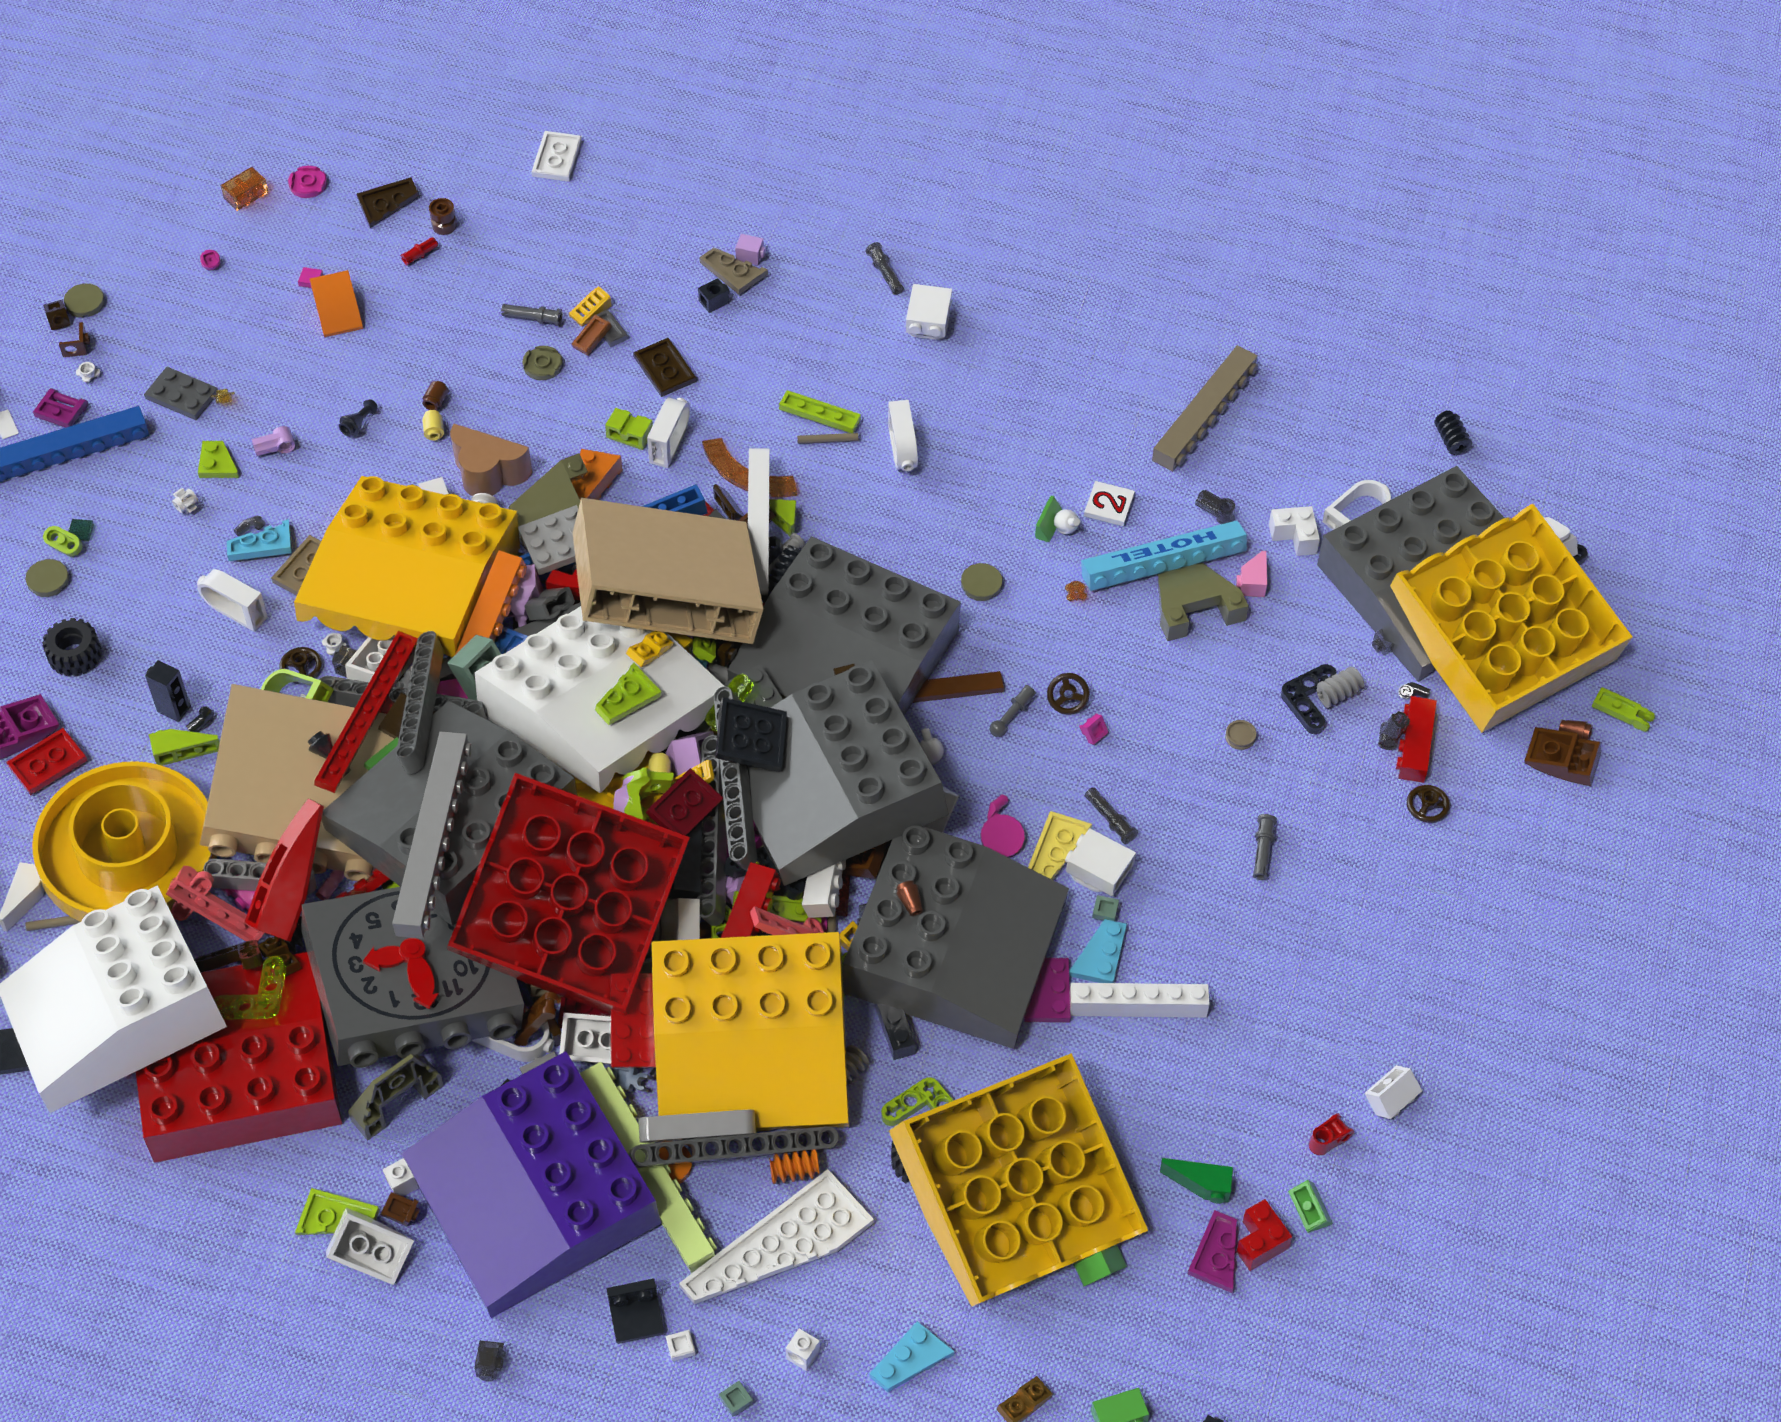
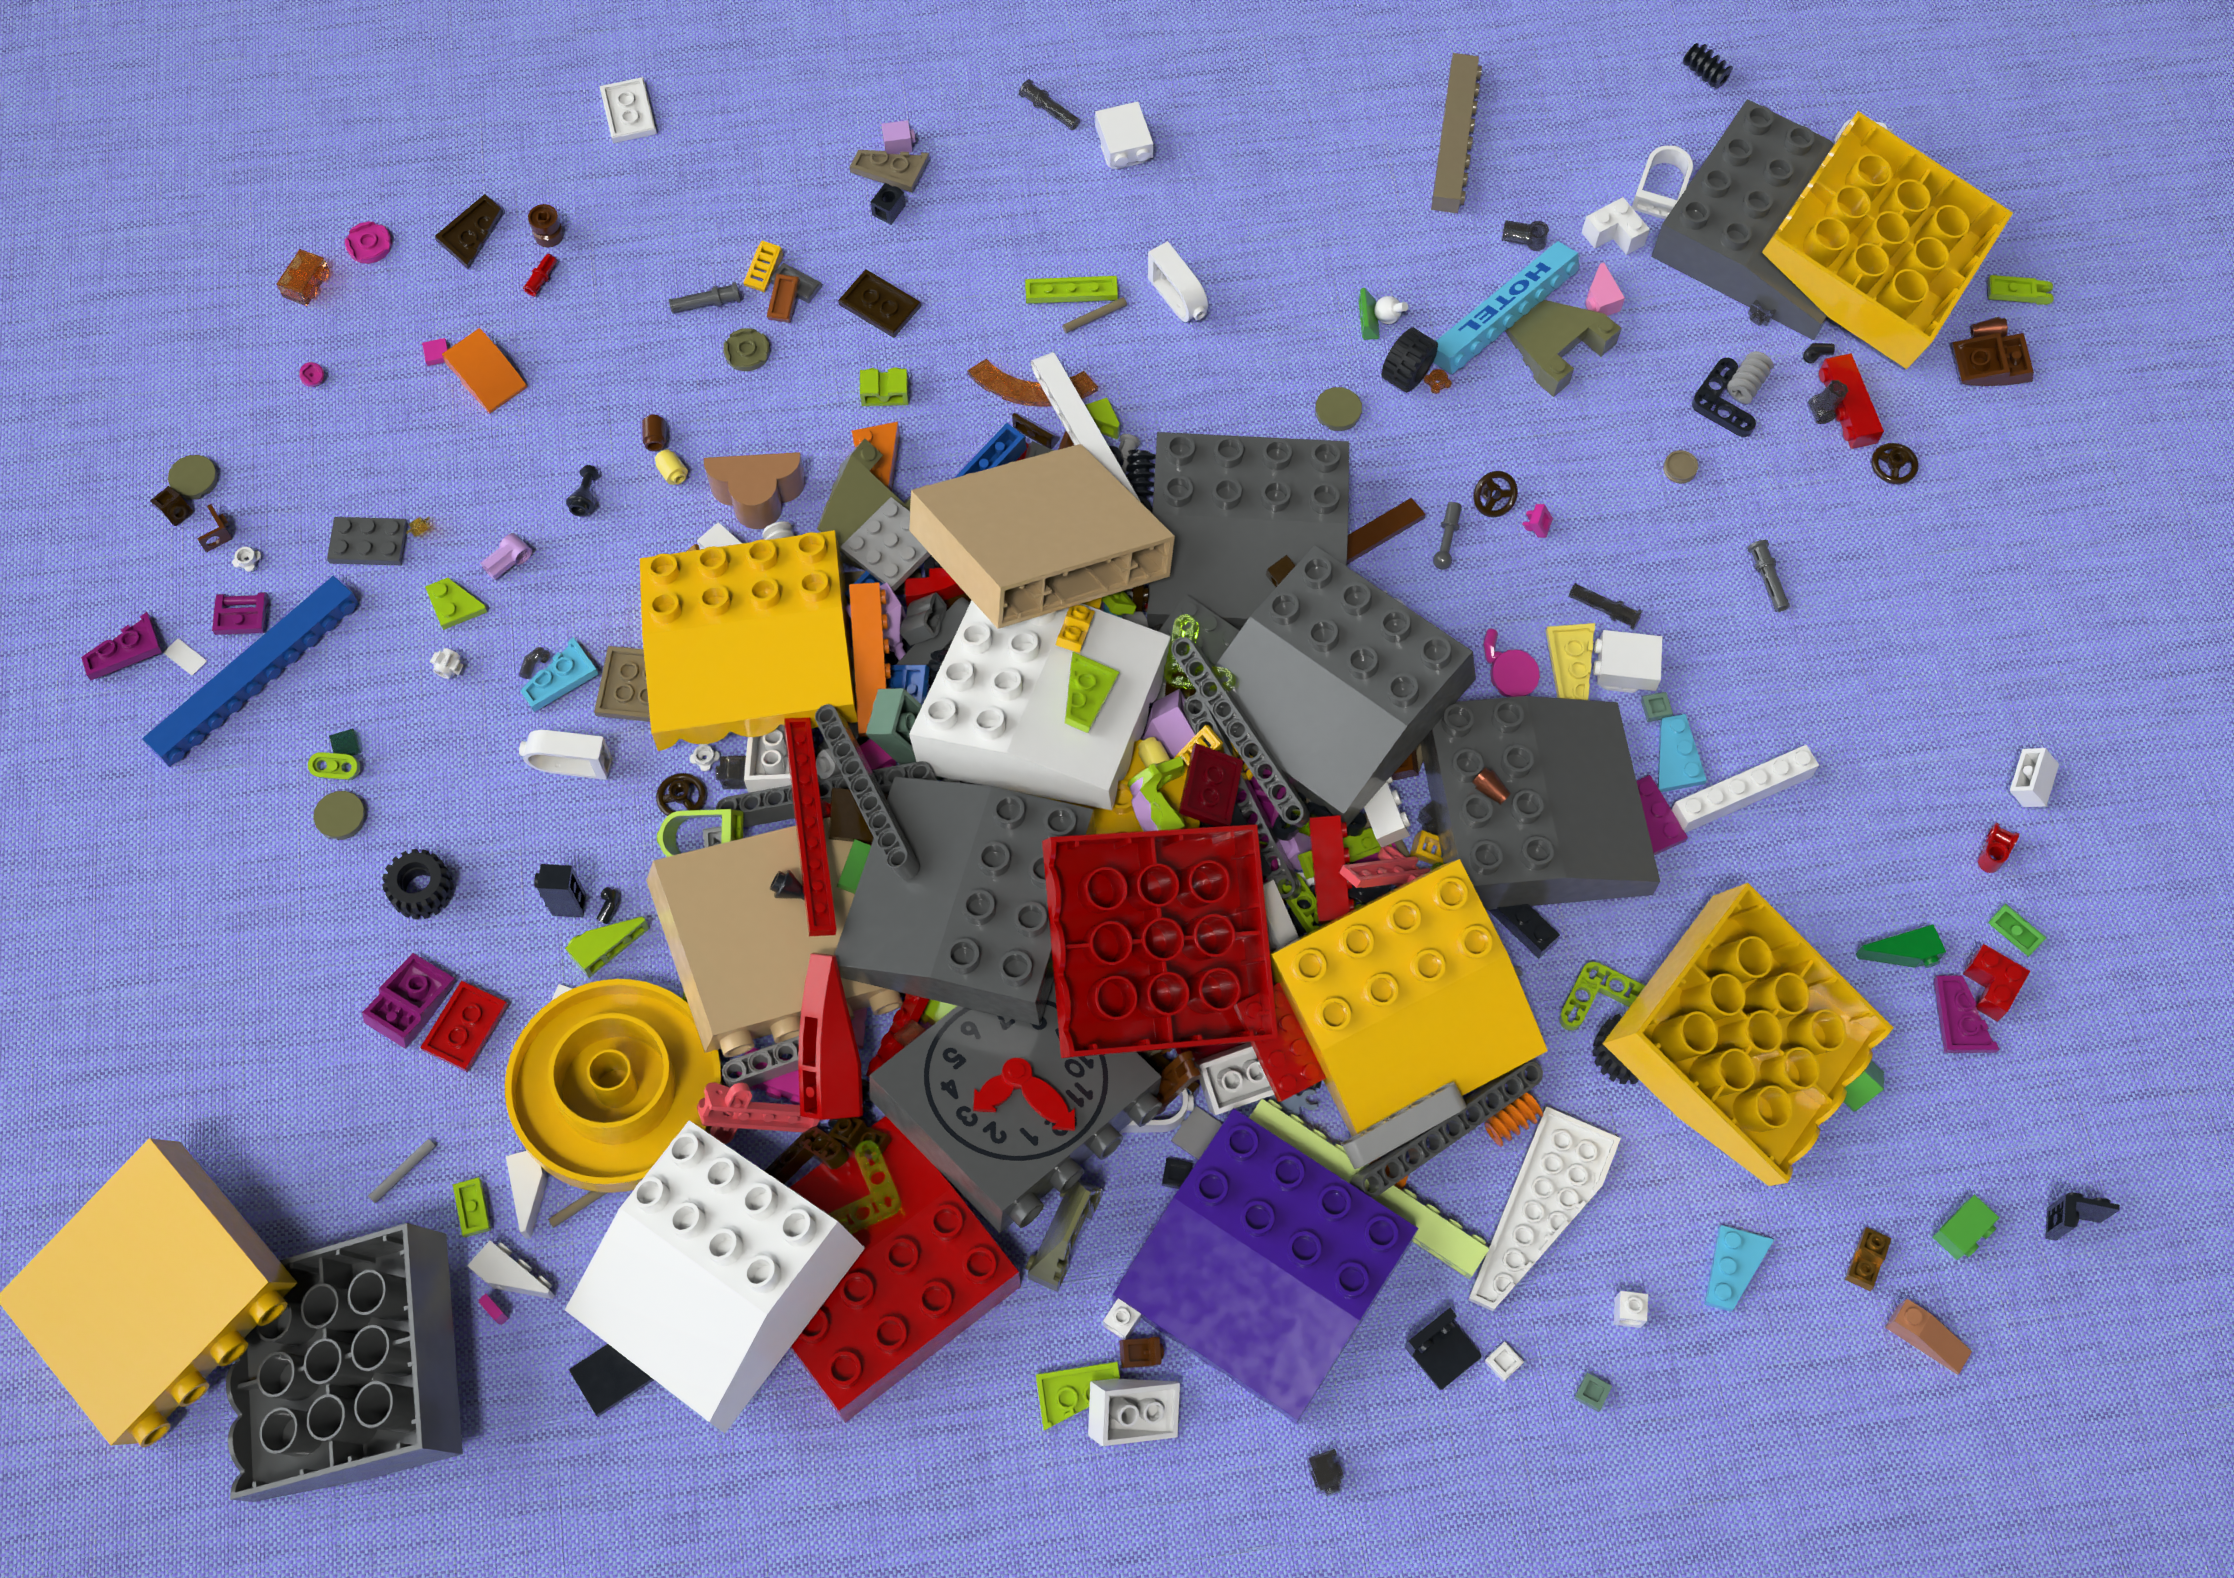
camera: 25 degrees left, 10 degrees up
(431, 835) = (990, 944): light grey brick -> none
(668, 431) = (930, 374): white window -> none
(751, 734) = (1238, 680): black plate -> none
(1055, 563) = (1409, 359): none -> black tyre
(1109, 503) = (1416, 272): white tile -> none

